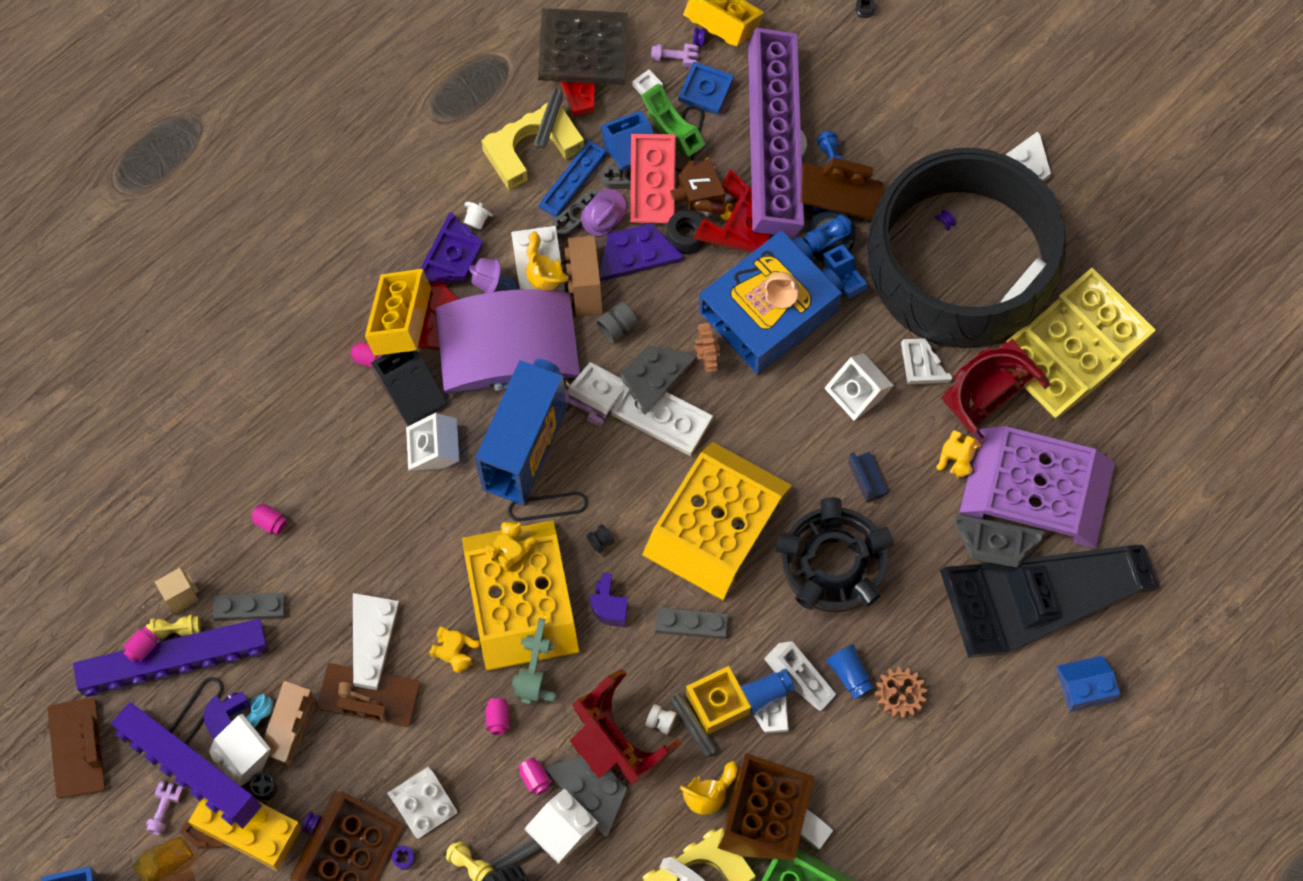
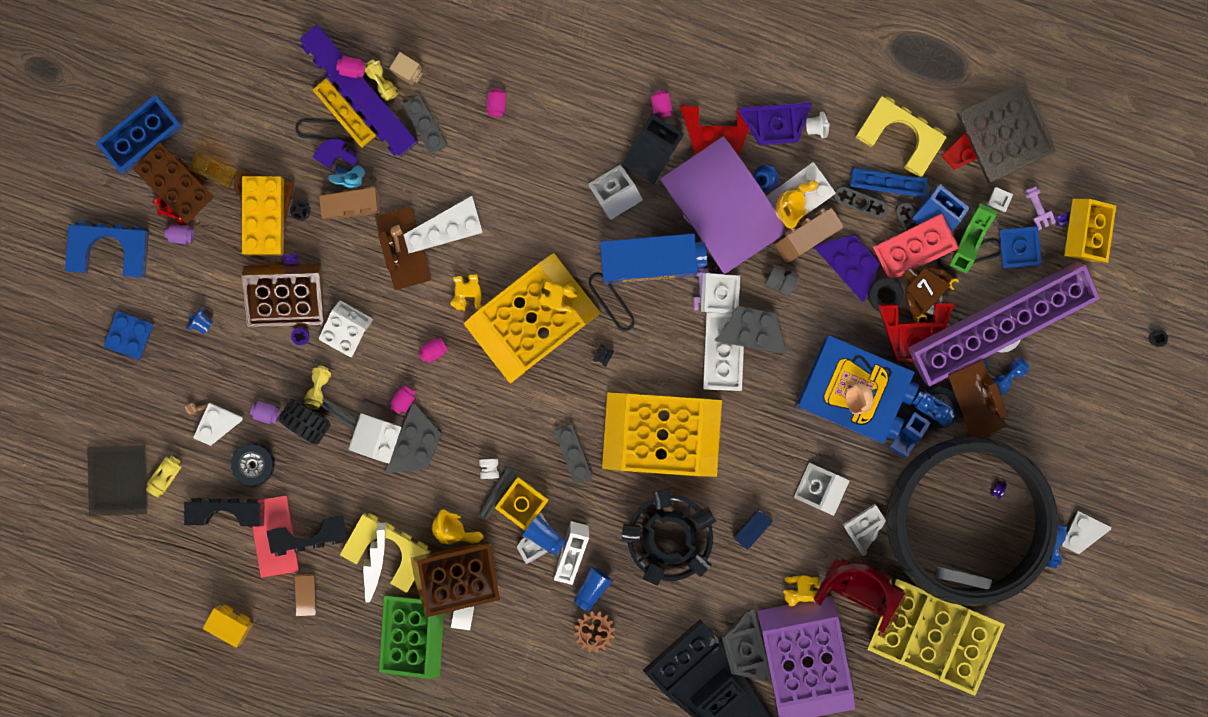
camera: 60 degrees right, 20 degrees up
(76, 748) = (260, 61): reddish brown bracket -> none
(156, 826) = (235, 150): lavender hinge -> none
(185, 685) = (344, 112): none -> yellow tile
(187, 765) = (280, 151): dark purple brick -> none
(240, 751) = (312, 182): white slope -> none
(398, 312) = (701, 112): yellow brick -> none
(486, 274) = (768, 161): medium lavender piece -> none
(530, 682) = (469, 360): sand green piece -> none
(549, 118) = (925, 140): dark grey axle -> none
(603, 212) = (871, 222): medium lavender piece -> none
(604, 744) = (446, 444): dark red piece -> none
(607, 608) = (551, 387): dark purple brick -> none
(707, 347) = (792, 360): nougat gear -> none

